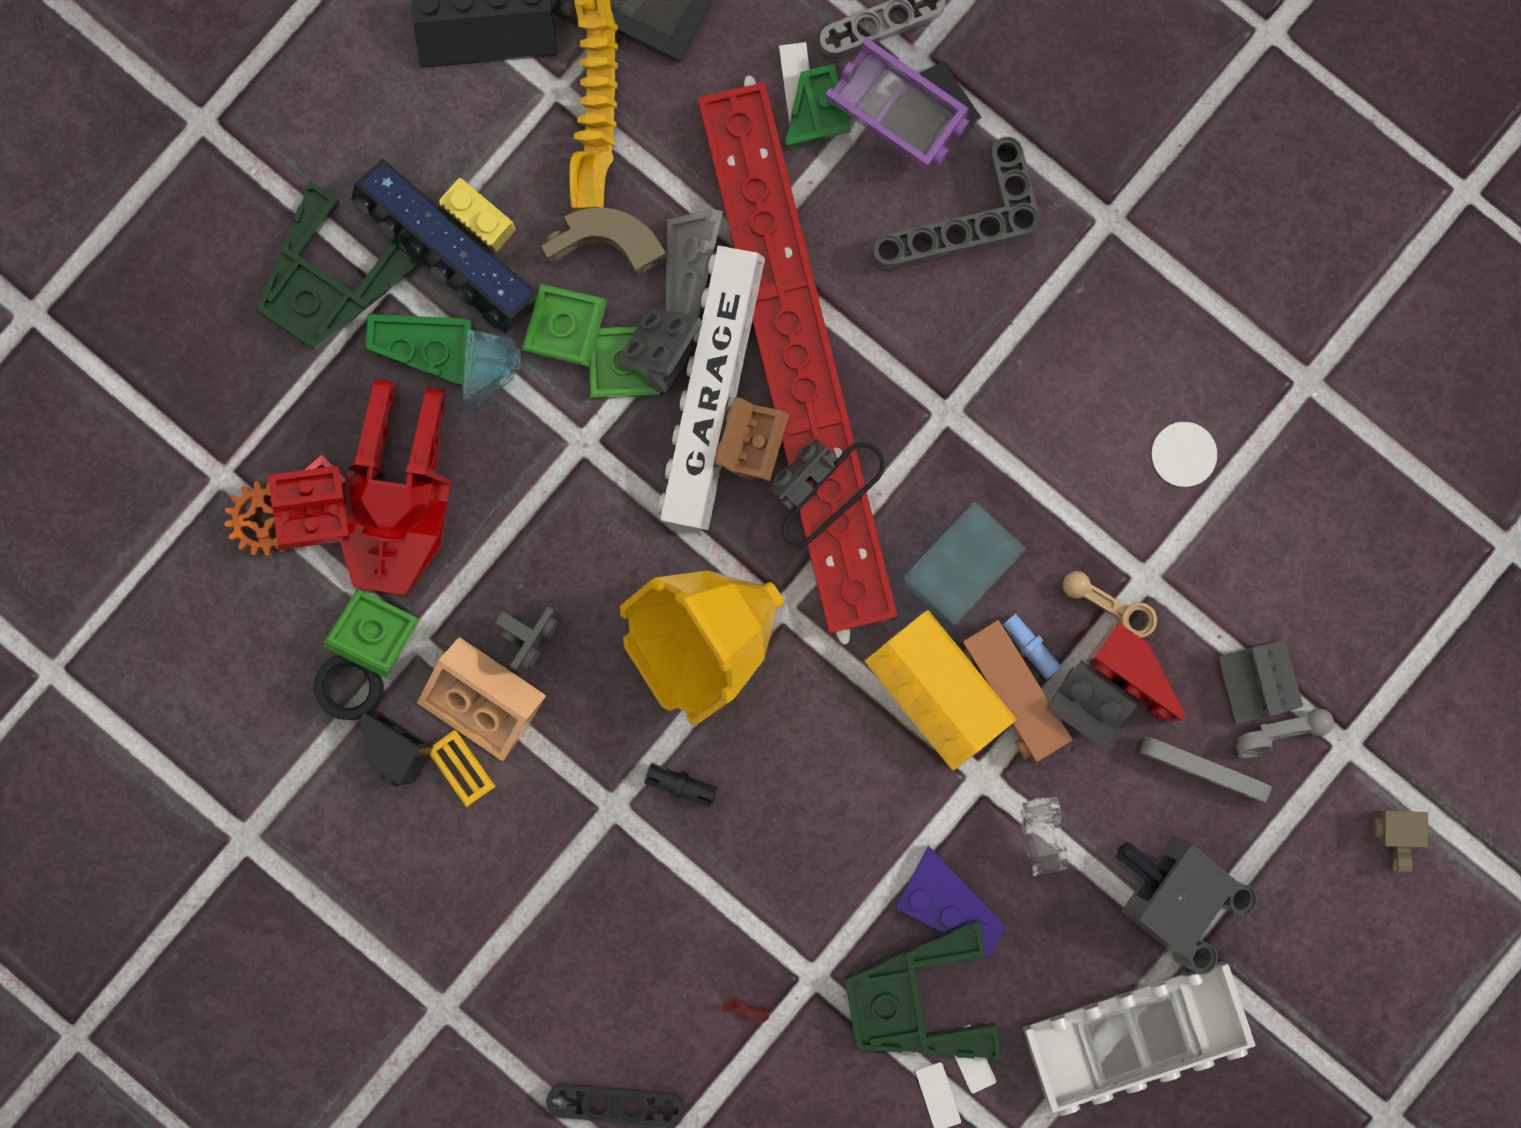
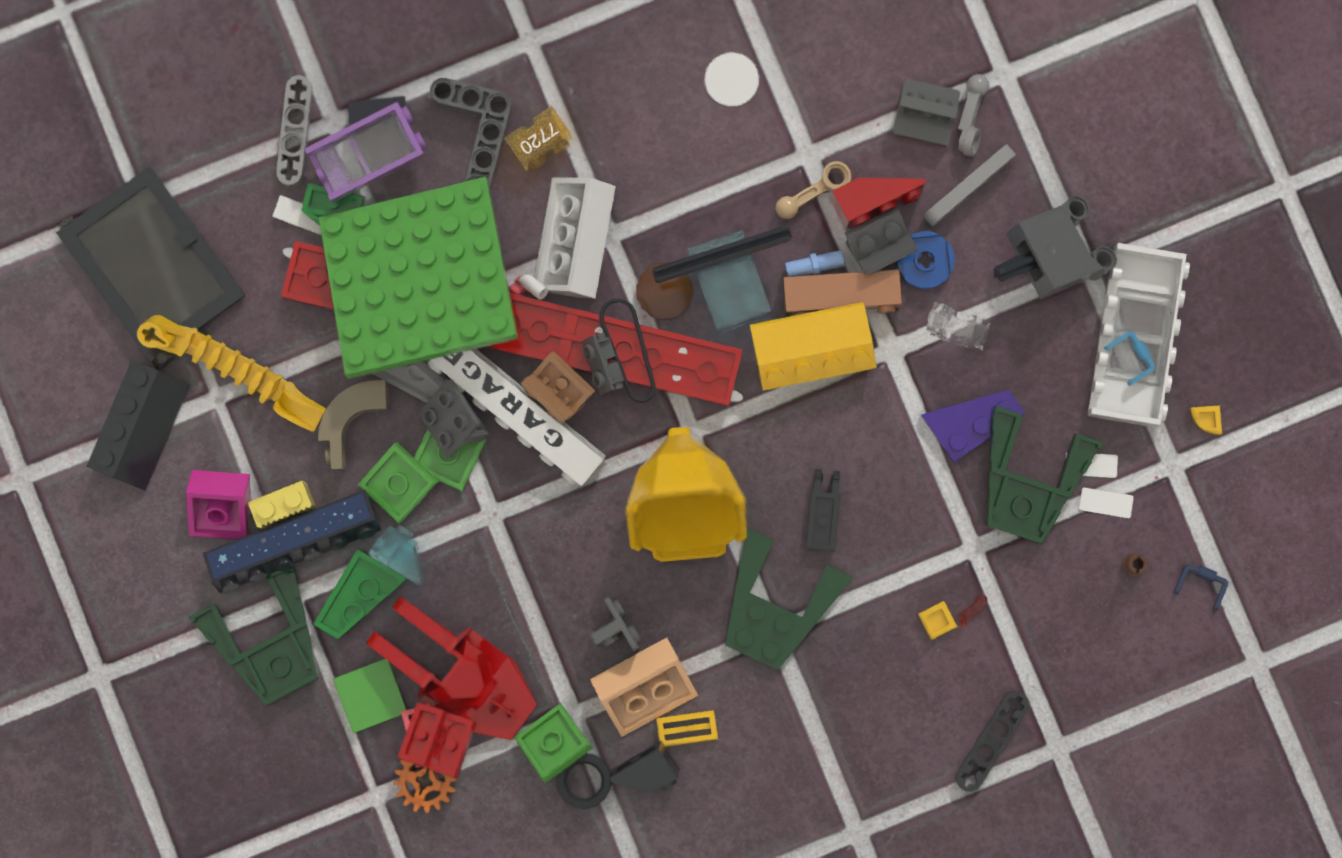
camera: 55 degrees left, 0 degrees up
(324, 414) = (370, 695): none -> bright green tile
(444, 148) = (218, 504): none -> dark pink slope
(610, 795) = (763, 628): none -> dark green wing
(680, 785) = (783, 572): black pin -> none
(715, 978) = (937, 620): none -> yellow tile
(765, 795) = (823, 514): none -> black hinge
(790, 229) = (417, 278): none -> bright green plate
(847, 351) = (527, 283): none -> white arm
(917, 500) = (666, 298): none -> reddish brown dish
(924, 374) = (574, 236): none -> white slope
(987, 540) = (722, 254): none -> black axle
(1009, 283) = (539, 140): none -> clear yellow brick
(1093, 783) = (938, 271): none -> blue plate
(1122, 1052) = (1141, 351): none -> dark azure piece
(1402, 832) = (1087, 68): dark tan brick -> none

